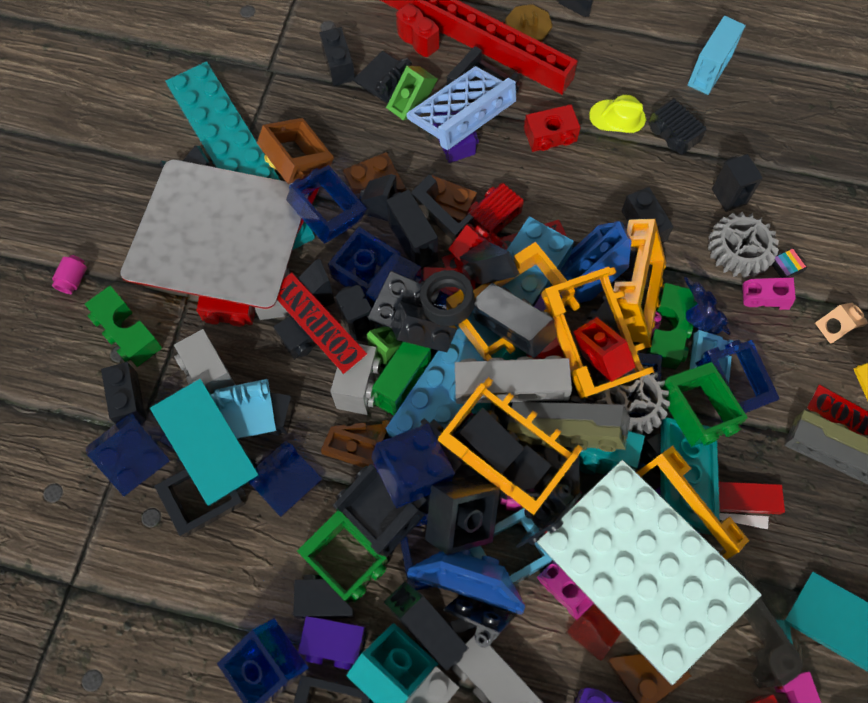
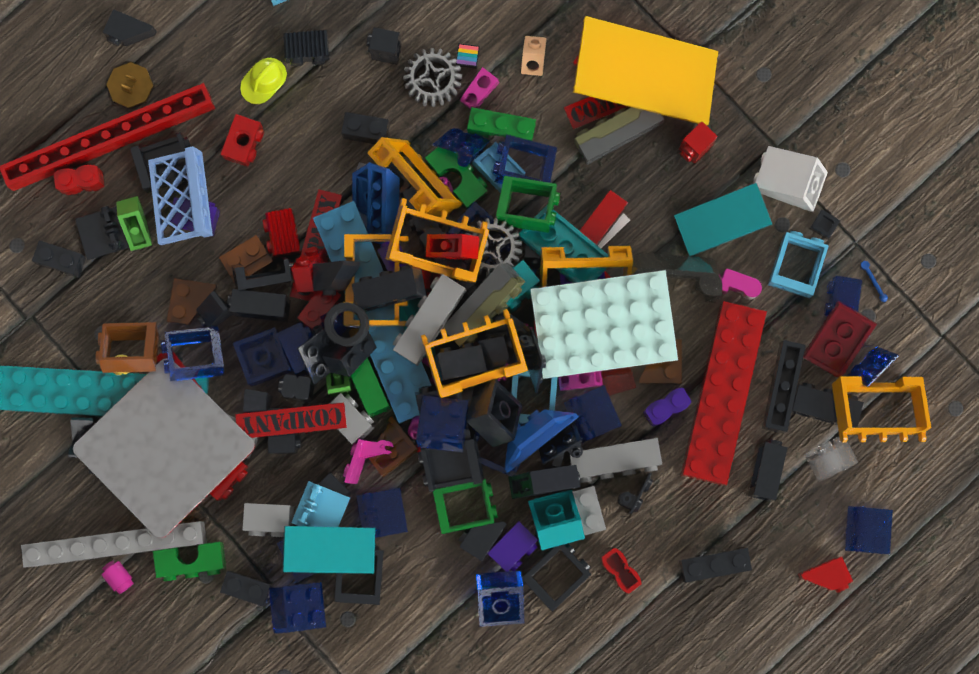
camera: 55 degrees left, 15 degrees up
(99, 252) = (111, 545): none -> light grey brick
(324, 413) = (360, 451): none -> dark pink plate
(538, 632) = (594, 413): none -> clear blue hinge
(751, 324) = (493, 123): none -> green arch

